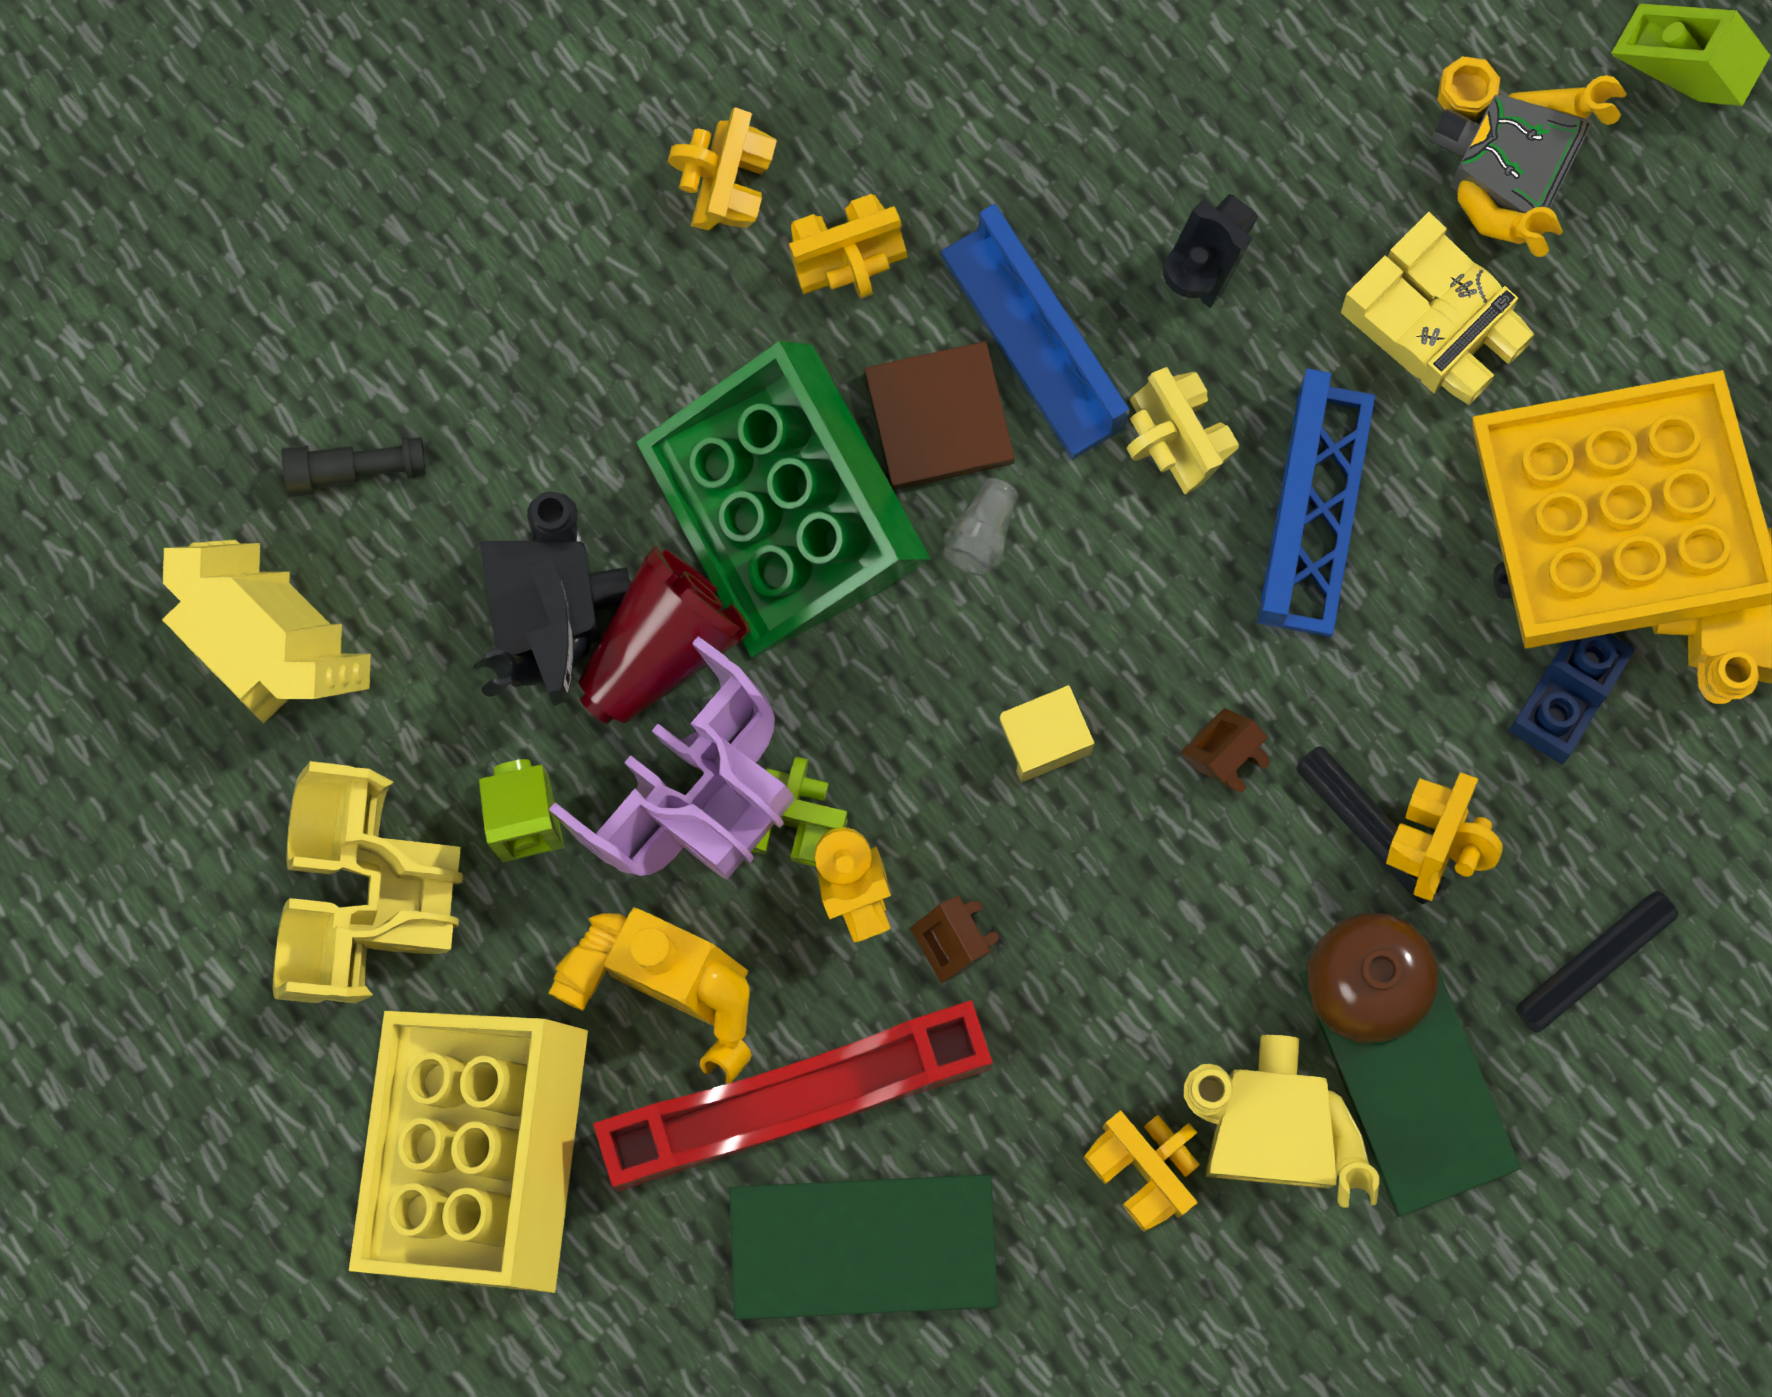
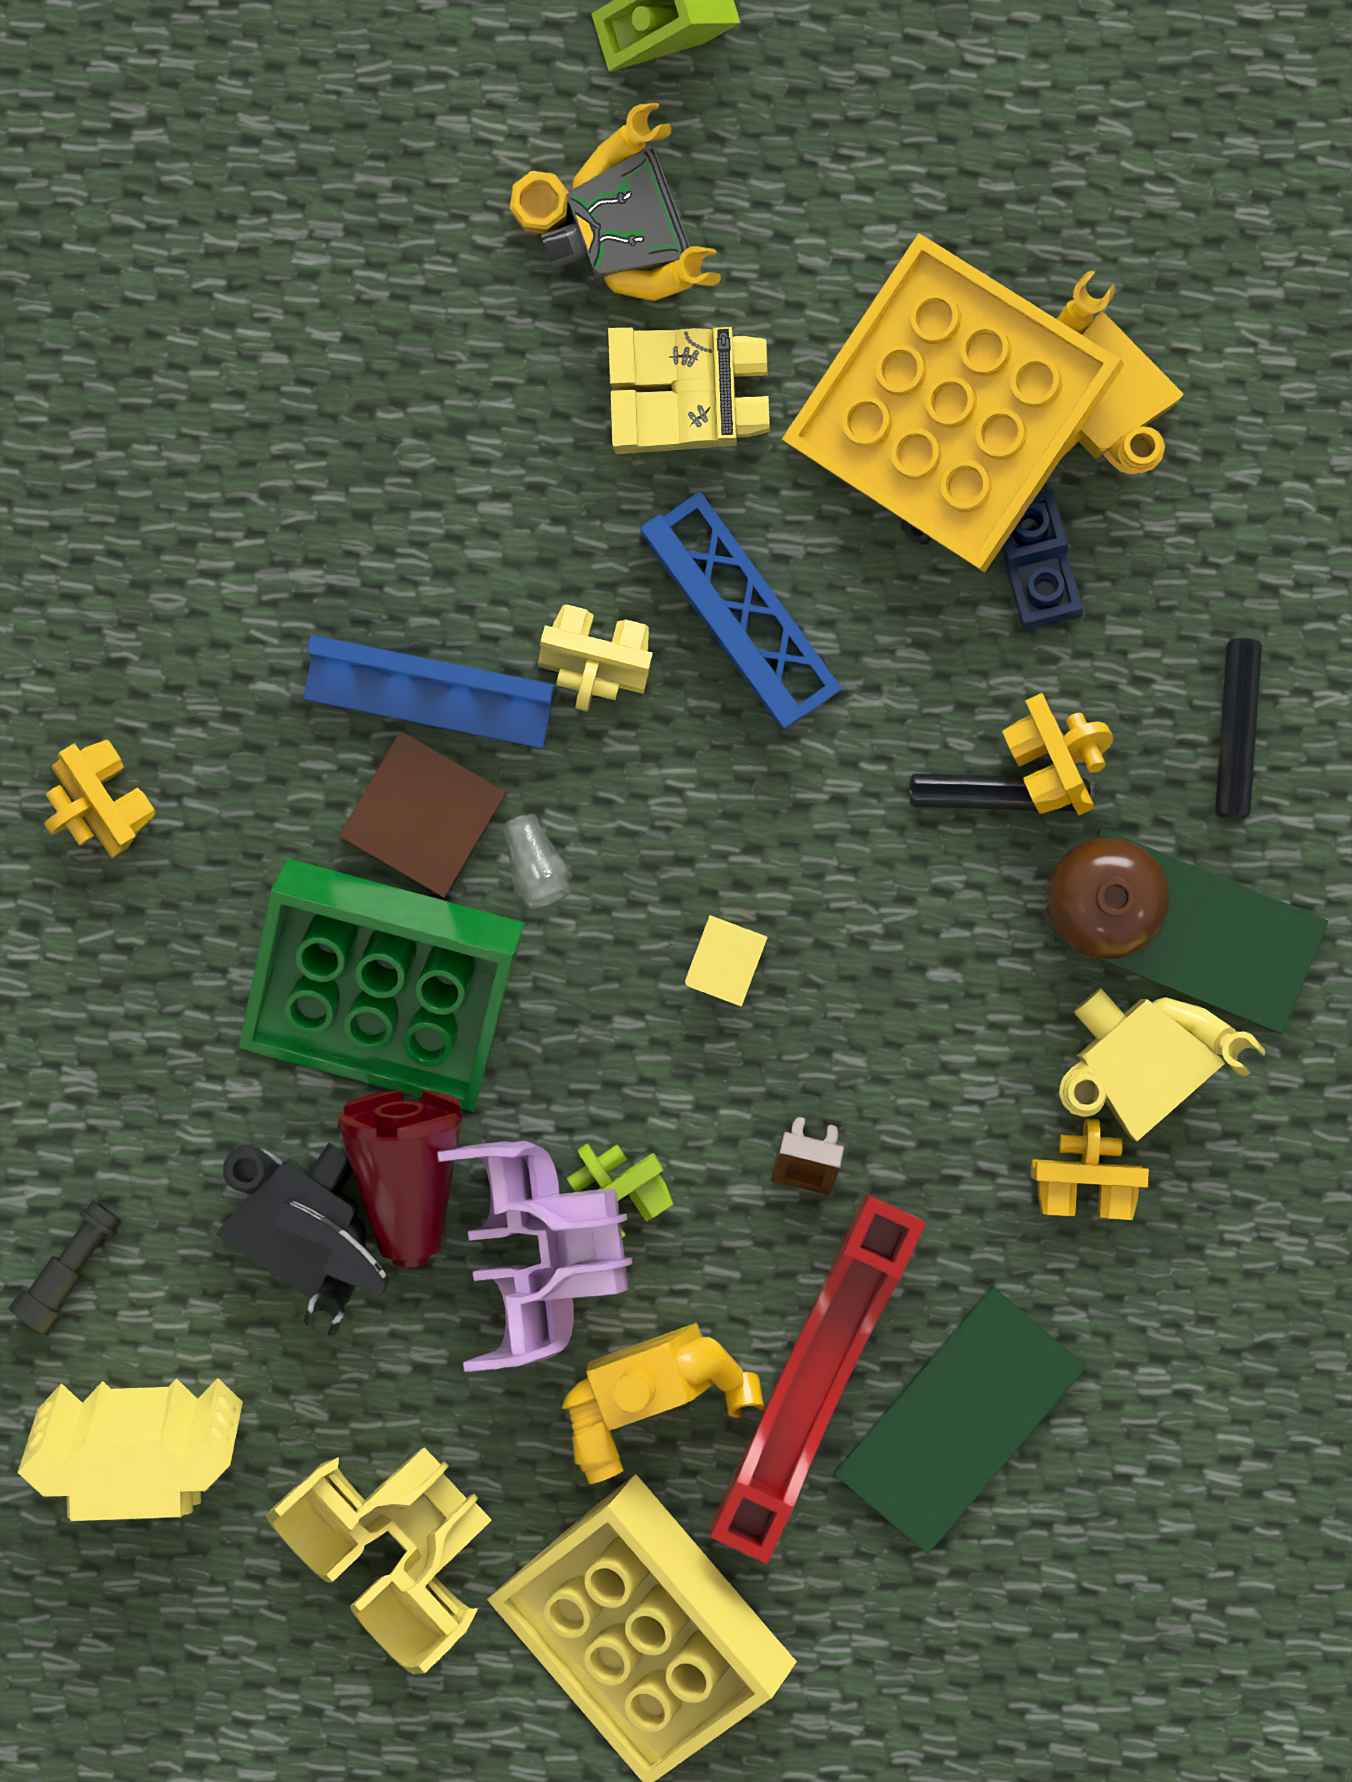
camera: 50 degrees left, 10 degrees up
(518, 811) = (434, 1381): lime slope -> none
(847, 251) = (244, 767): yellow hips -> none
(852, 882) = (709, 1199): yellow hips -> none
(1209, 249) = (488, 514): black hips -> none
(1225, 747) = (852, 842): reddish brown tile -> none

